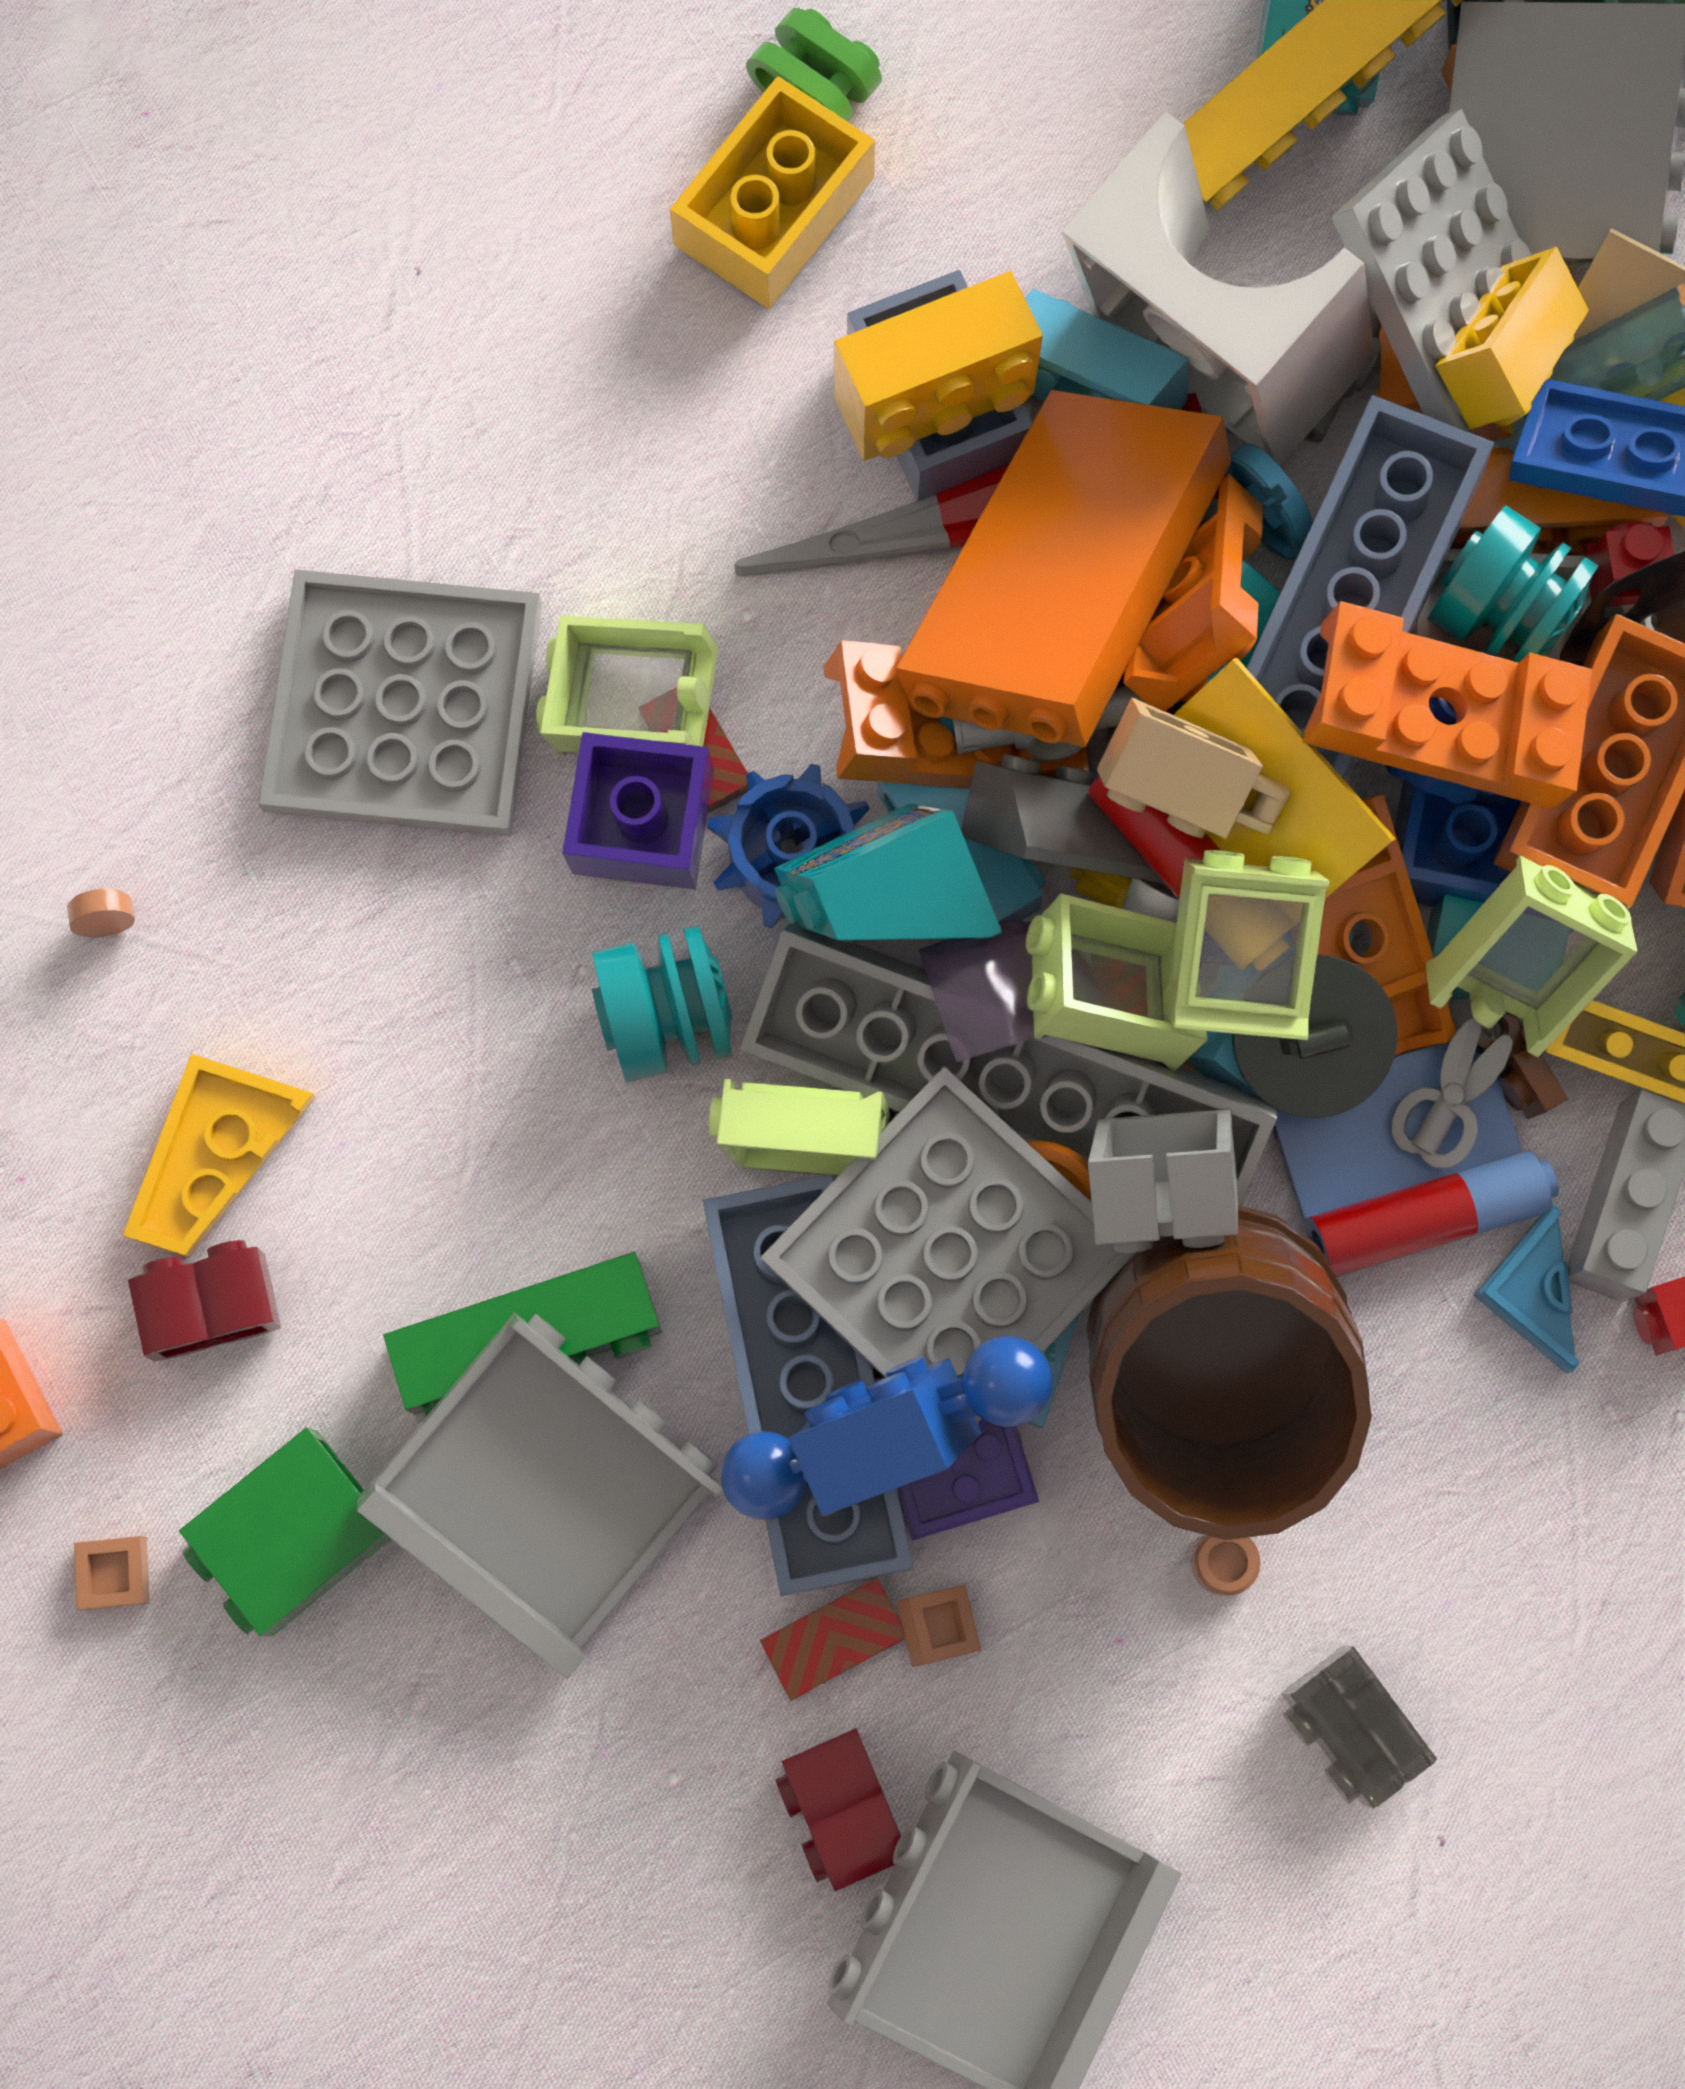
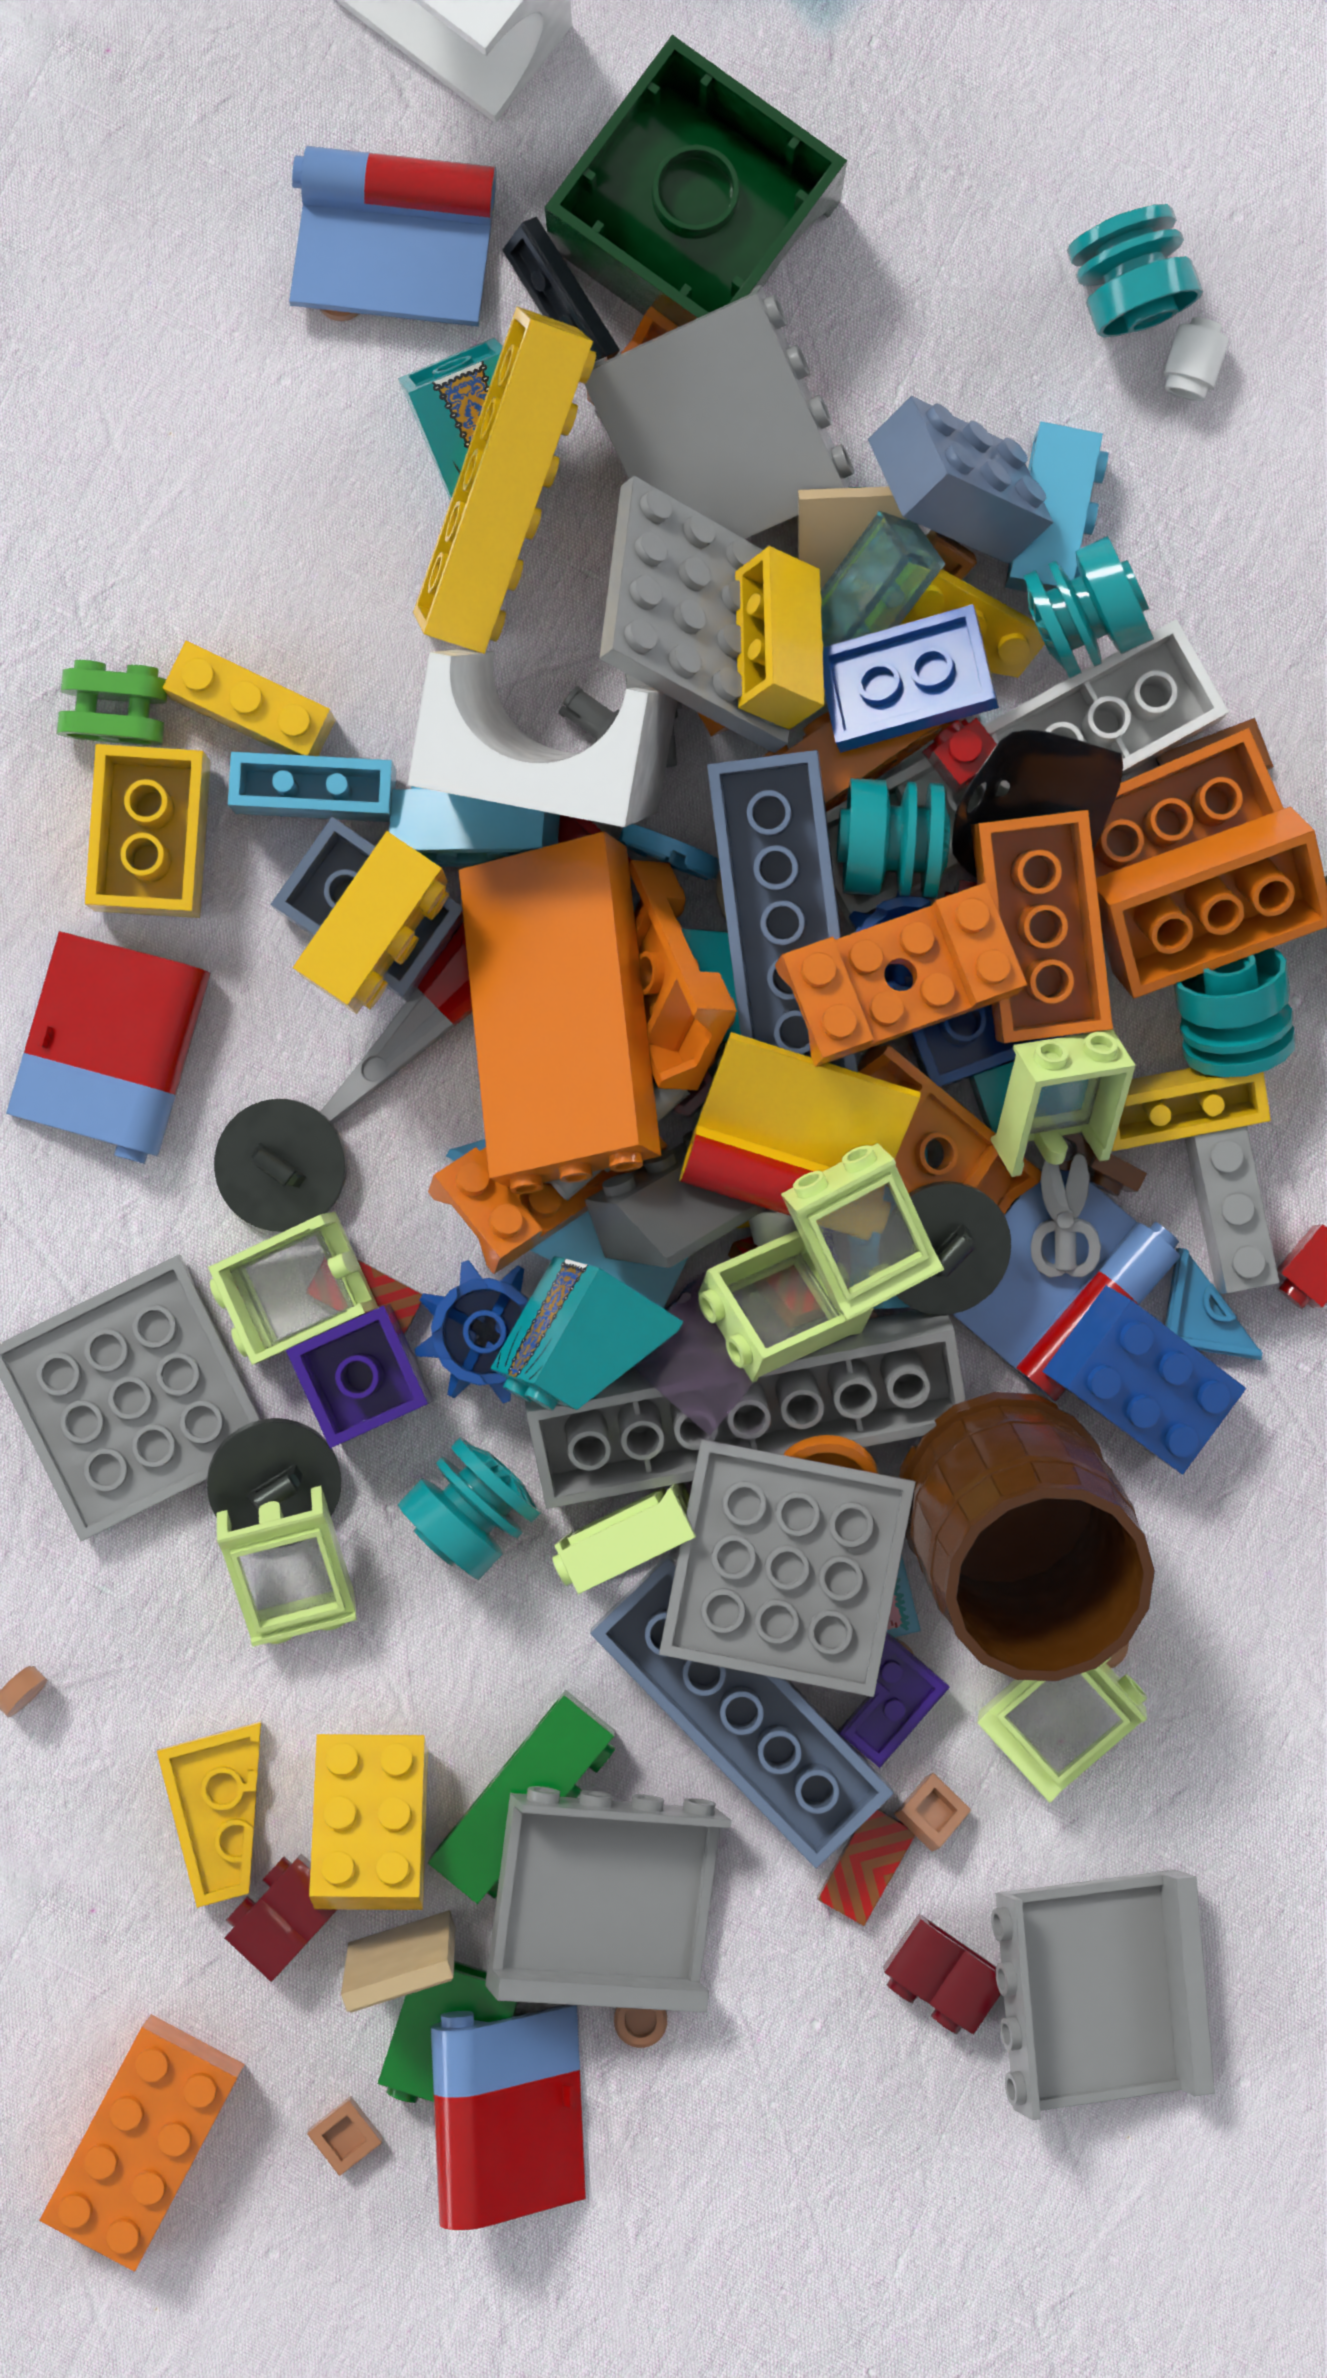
camera: 35 degrees left, 10 degrees up
(283, 1410) = (399, 1961): none -> tan tile
(288, 1654) = (506, 2116): none -> red door
(351, 1253) = (369, 1822): none -> yellow brick
(440, 952) = (288, 1572): none -> yellowish green window
(485, 866) = (271, 1463): none -> pearl dark grey shield
(491, 1652) = (640, 2026): none -> nougat tile
(607, 368) = (109, 1044): none -> red door
(696, 567) = (280, 1164): none -> pearl dark grey shield
(887, 1432) = (823, 1727): blue brick -> none
(945, 141) = (248, 702): none -> yellow brick
(946, 232) = (311, 786): none -> medium azure brick
(1143, 1607) = (1062, 1725): none -> window
(1164, 1180) = (904, 1434): light grey piece -> none
(1187, 774) = (748, 1139): tan brick -> none
(1357, 1728) = (1255, 1701): clear smoke brick -> none
(1442, 1305) = (1144, 1379): none -> blue brick

